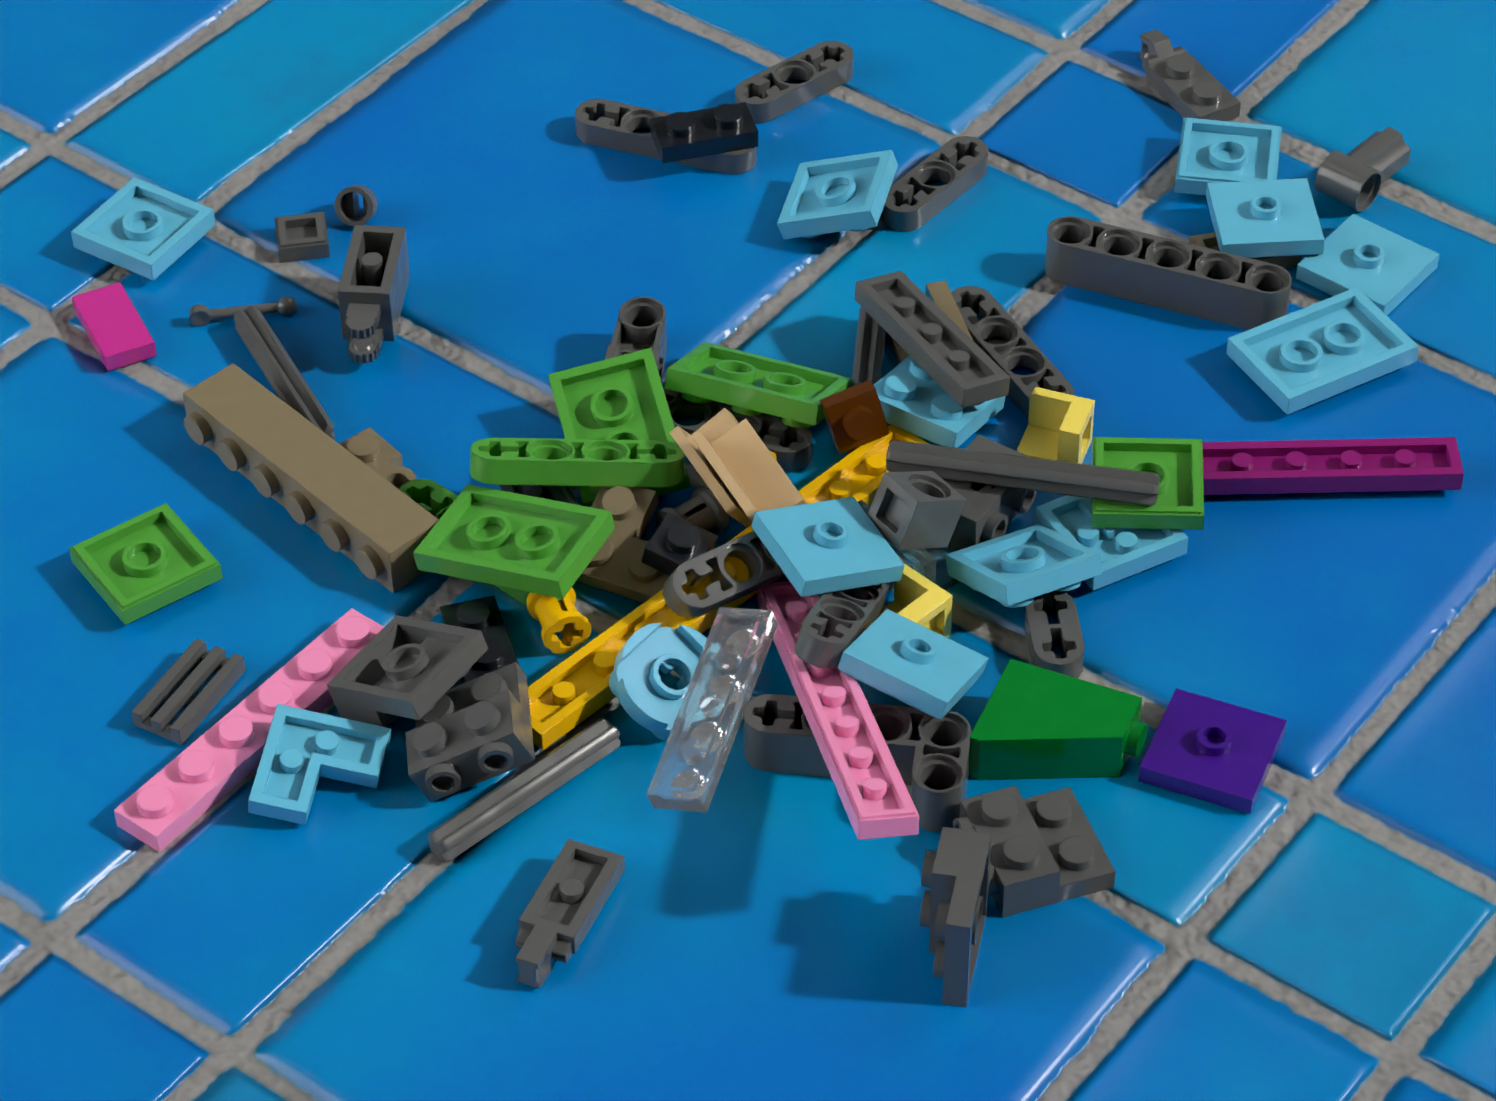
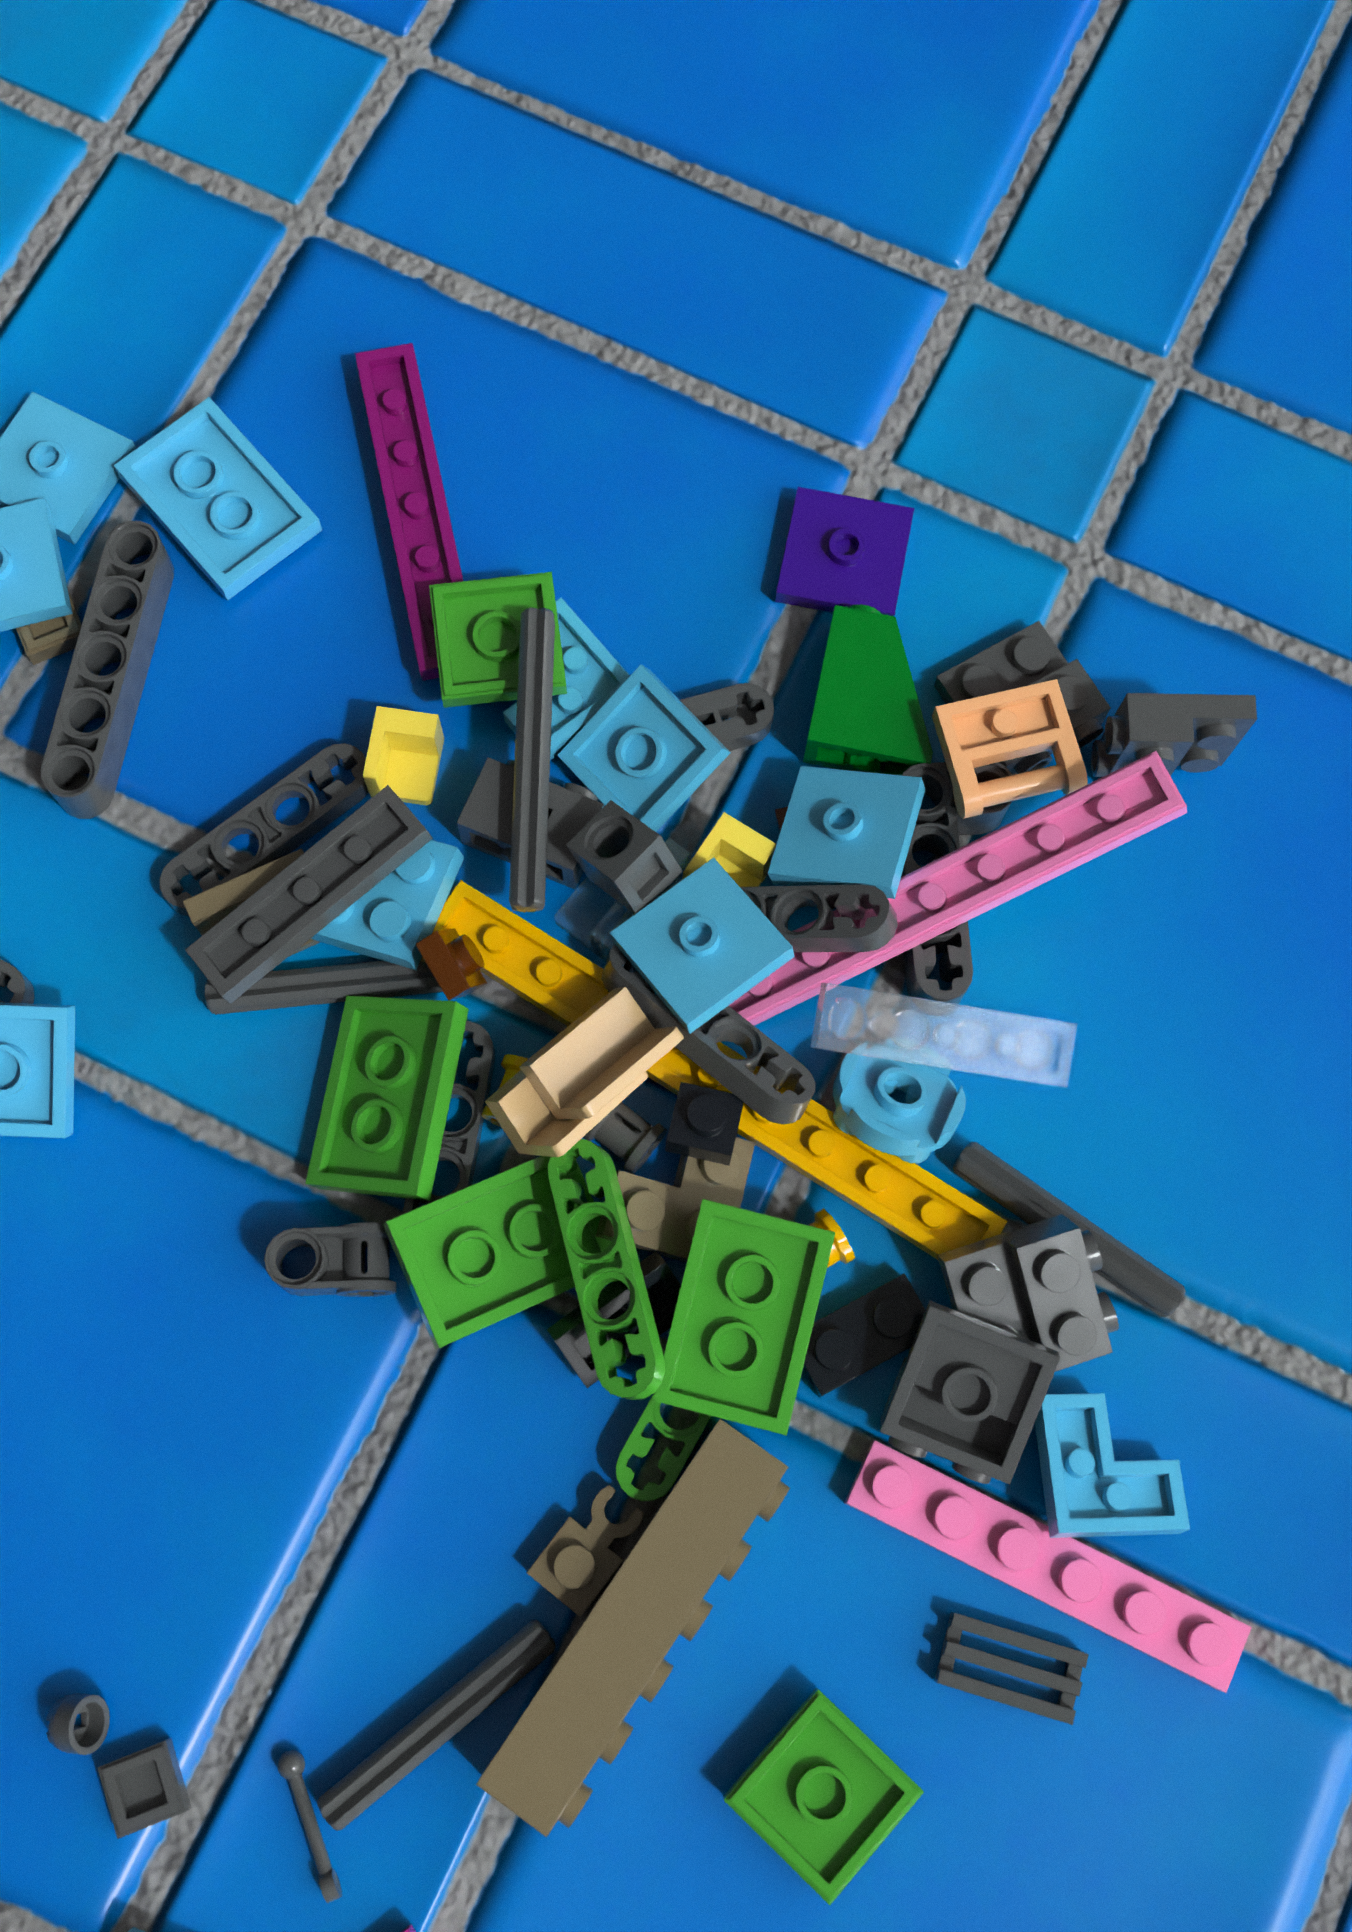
camera: 105 degrees left, 30 degrees up
(373, 289) = (283, 1637): dark grey hinge -> none
(564, 908) = (1227, 1142): dark grey hinge -> none
(985, 774) = (1003, 729): none -> light nougat plate

